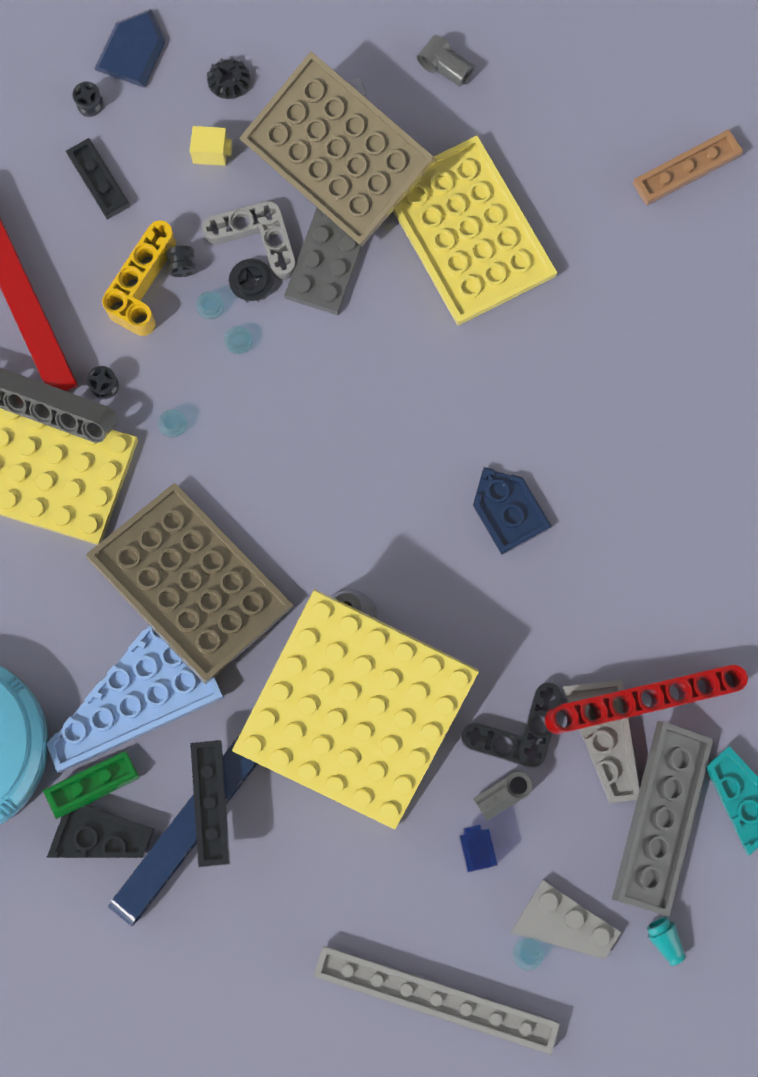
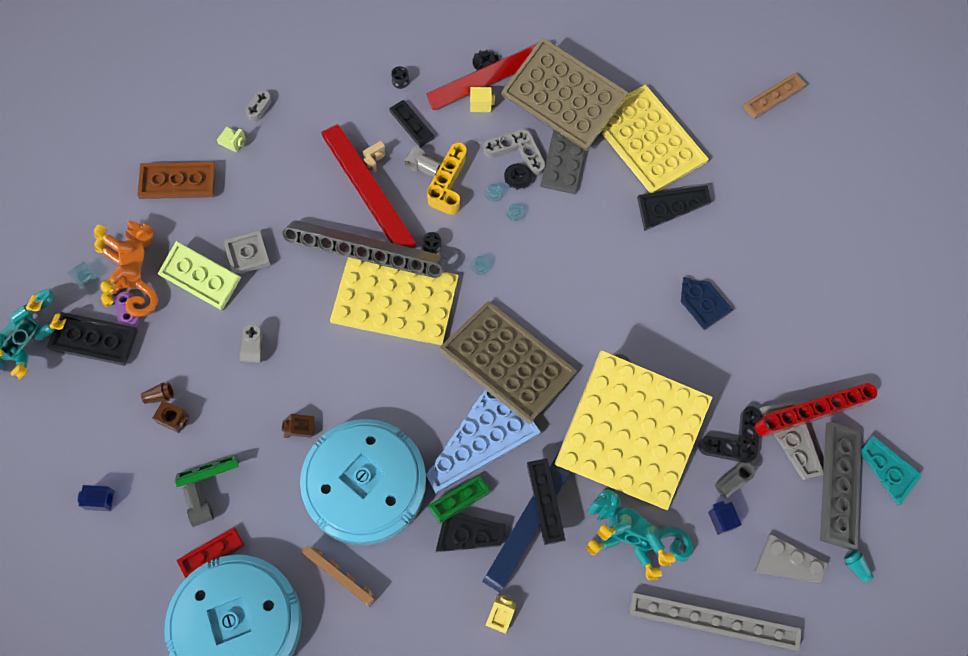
camera: 15 degrees left, 10 degrees down
(30, 228) = (372, 154): none -> tan bracket
(98, 243) = (420, 161): none -> light grey piece
(129, 955) = (501, 613): none -> light yellow bracket
(132, 49) = (423, 48): dark blue tile -> none
(181, 261) = (472, 167): black wheel -> none
(212, 108) = (479, 78): none -> red tile
(335, 853) = (635, 530): none -> teal animal
(439, 57) = (615, 43): dark grey piece -> none
(482, 345) = (668, 205): none -> black wing
(528, 954) = (769, 585): clear light blue plate -> none

